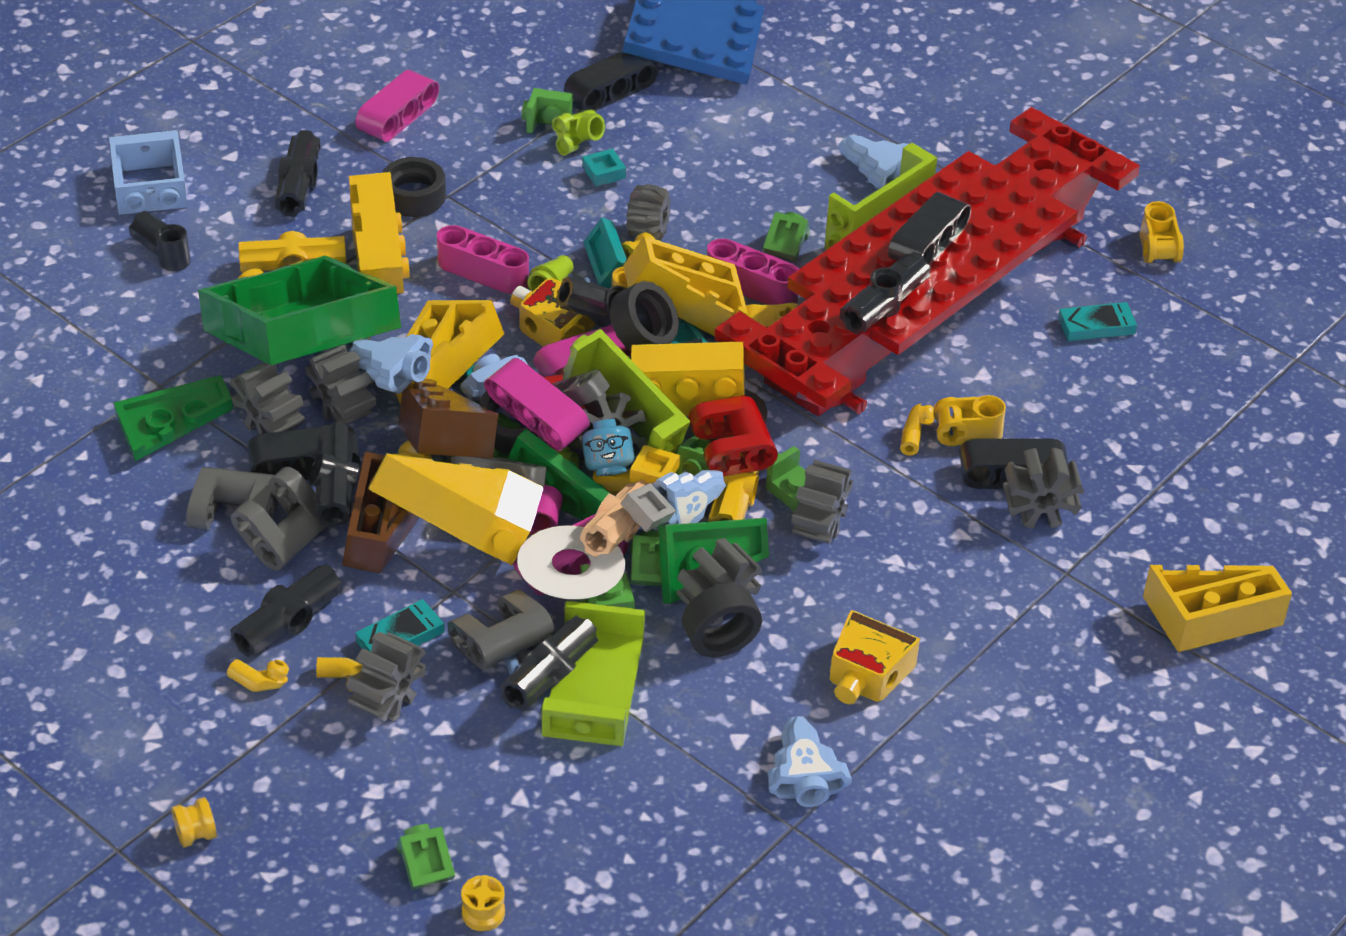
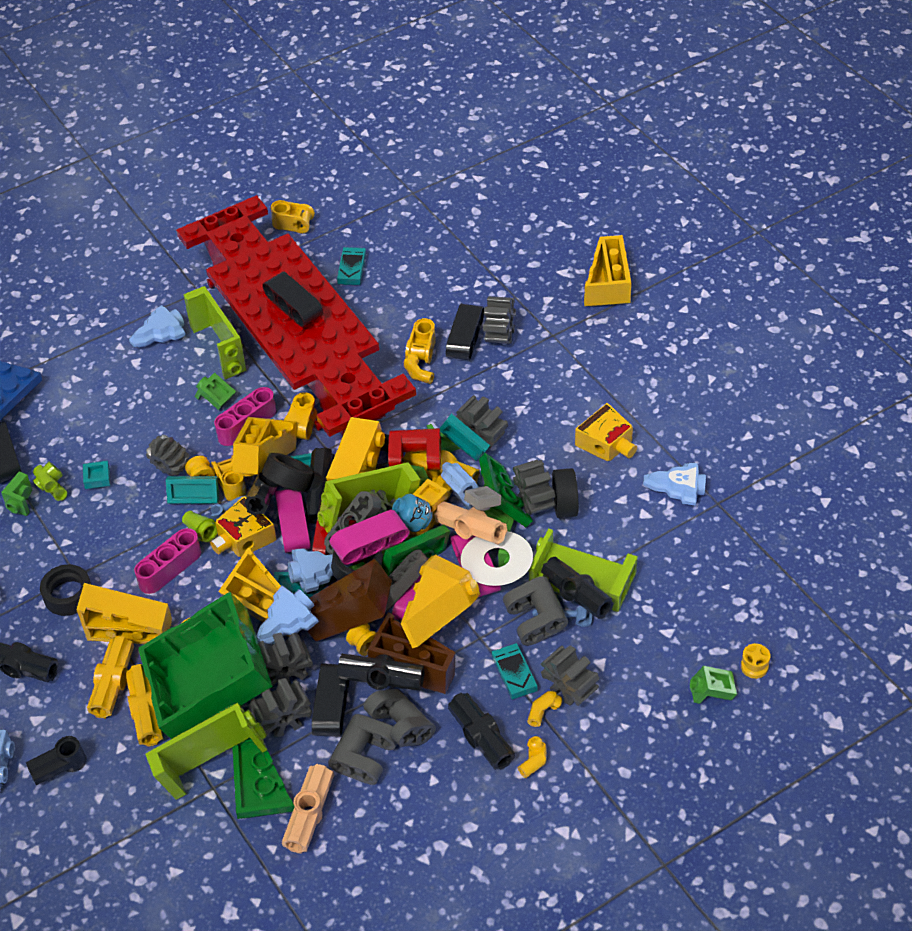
camera: 70 degrees left, 5 degrees up
(133, 466) = (303, 822): none -> light nougat piece
(166, 324) = (201, 745): none -> lime panel
(194, 822) = (661, 809): yellow wheel -> none
(787, 491) = (464, 437): none -> teal tile
(885, 292) = (344, 332): black piece -> none

